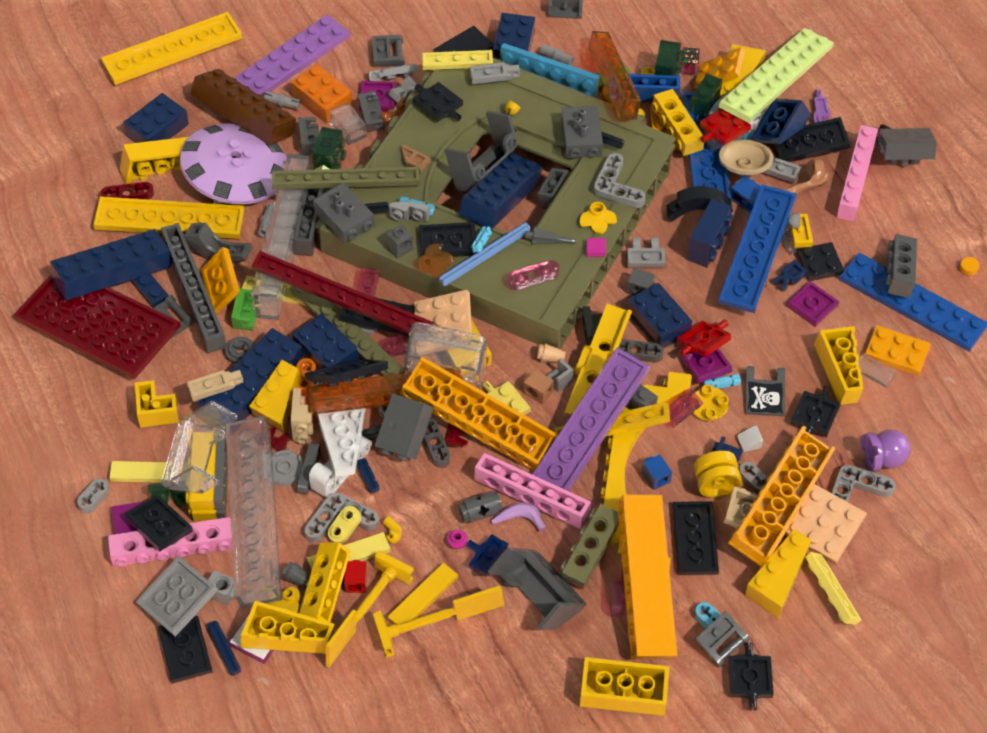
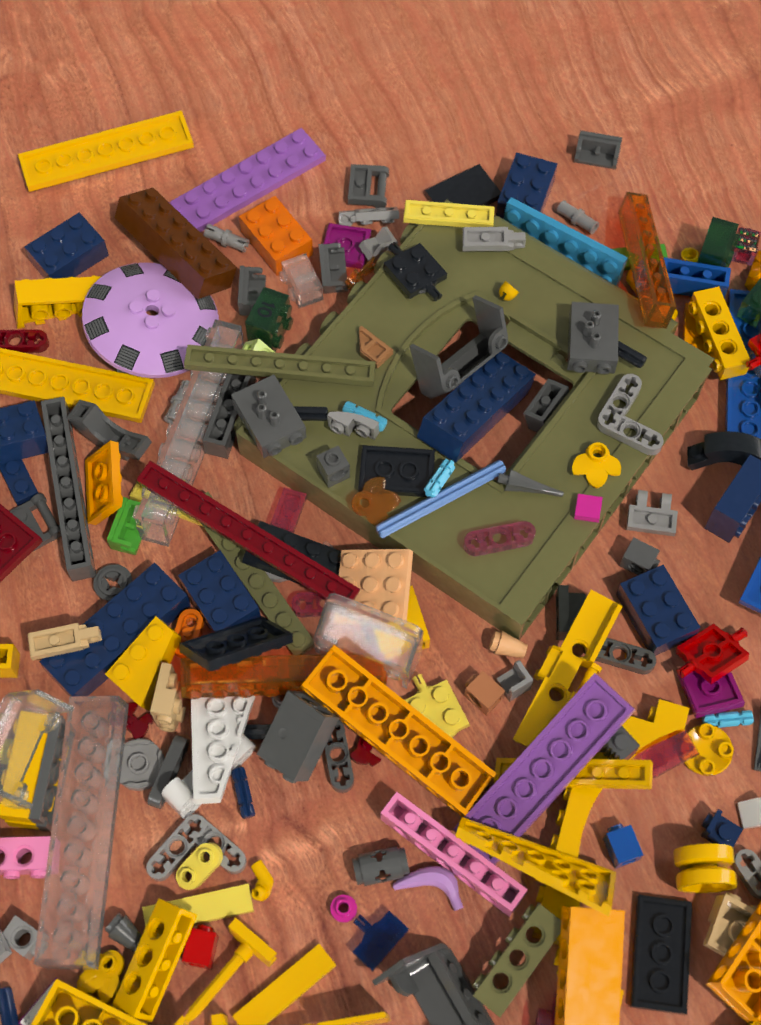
camera: 10 degrees right, 10 degrees up
(600, 481) = (567, 874): none -> yellow wing

